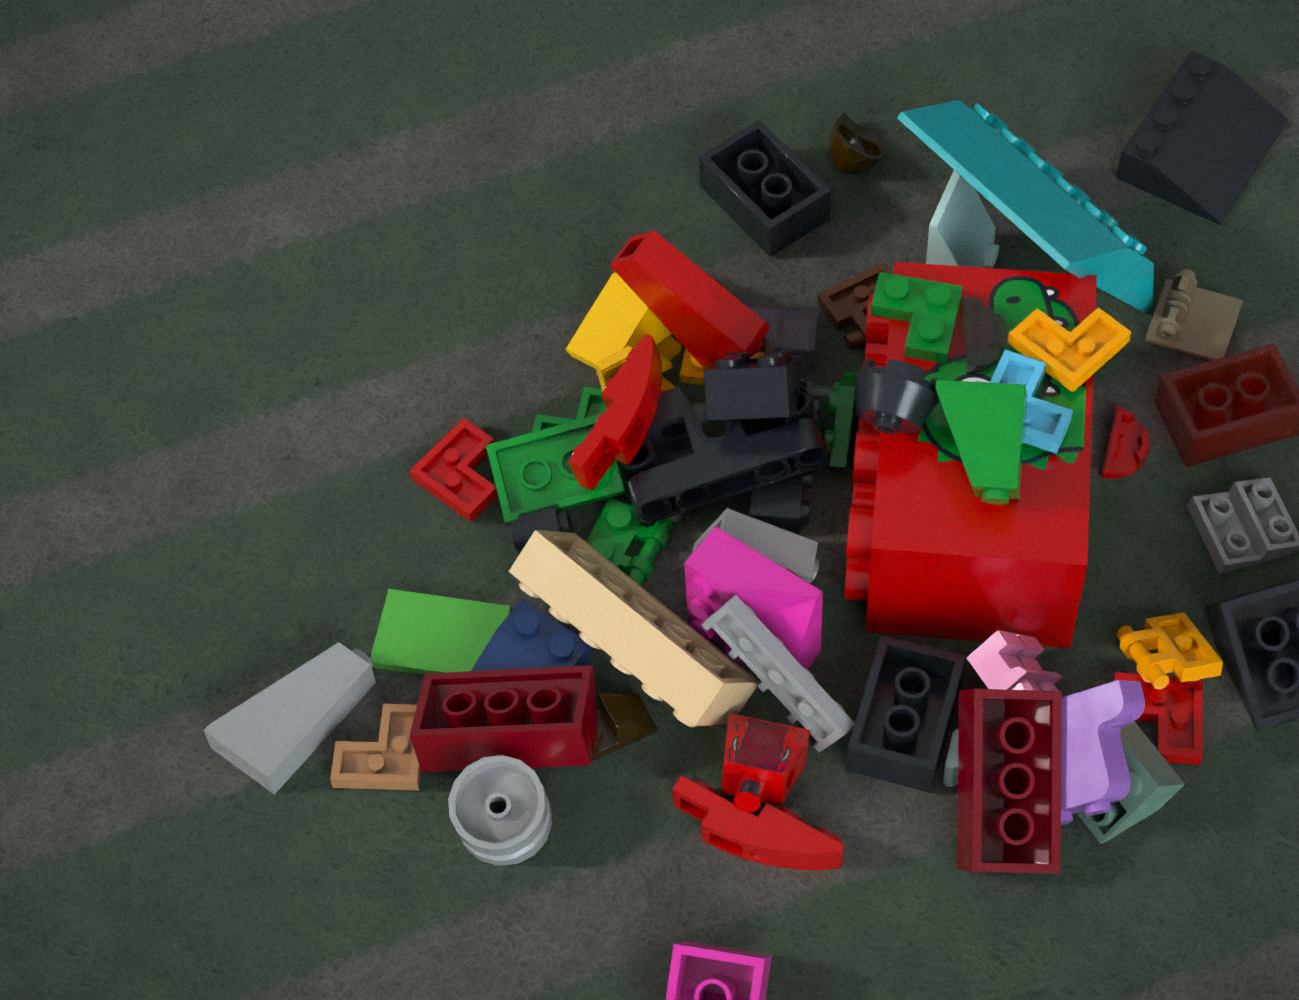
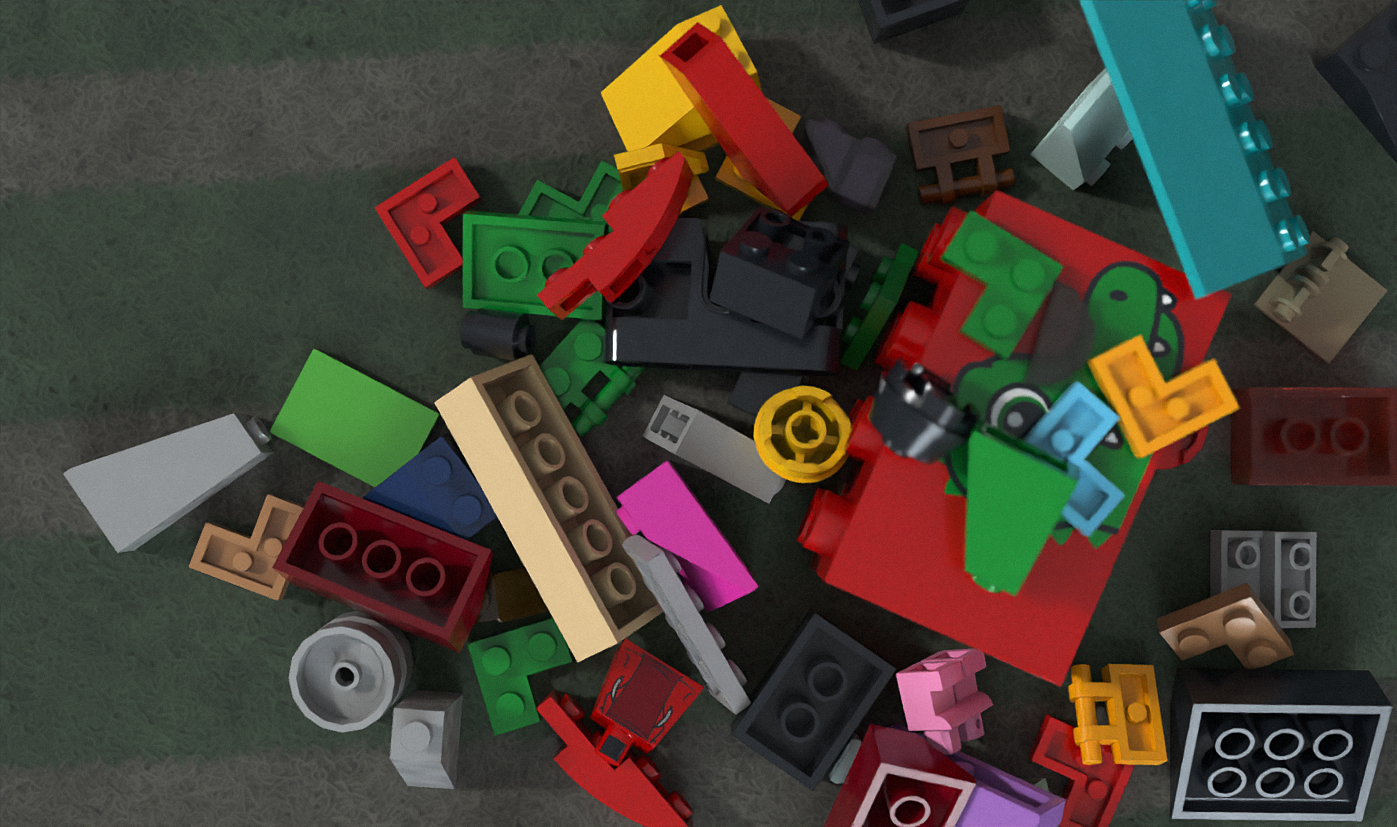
camera: 15 degrees right, 30 degrees up
(587, 842) = (427, 738): none -> light grey slope
(634, 779) = (505, 666): none -> green plate
(817, 503) = (802, 434): none -> yellow cone
(1229, 548) = (1230, 619): none -> medium nougat plate

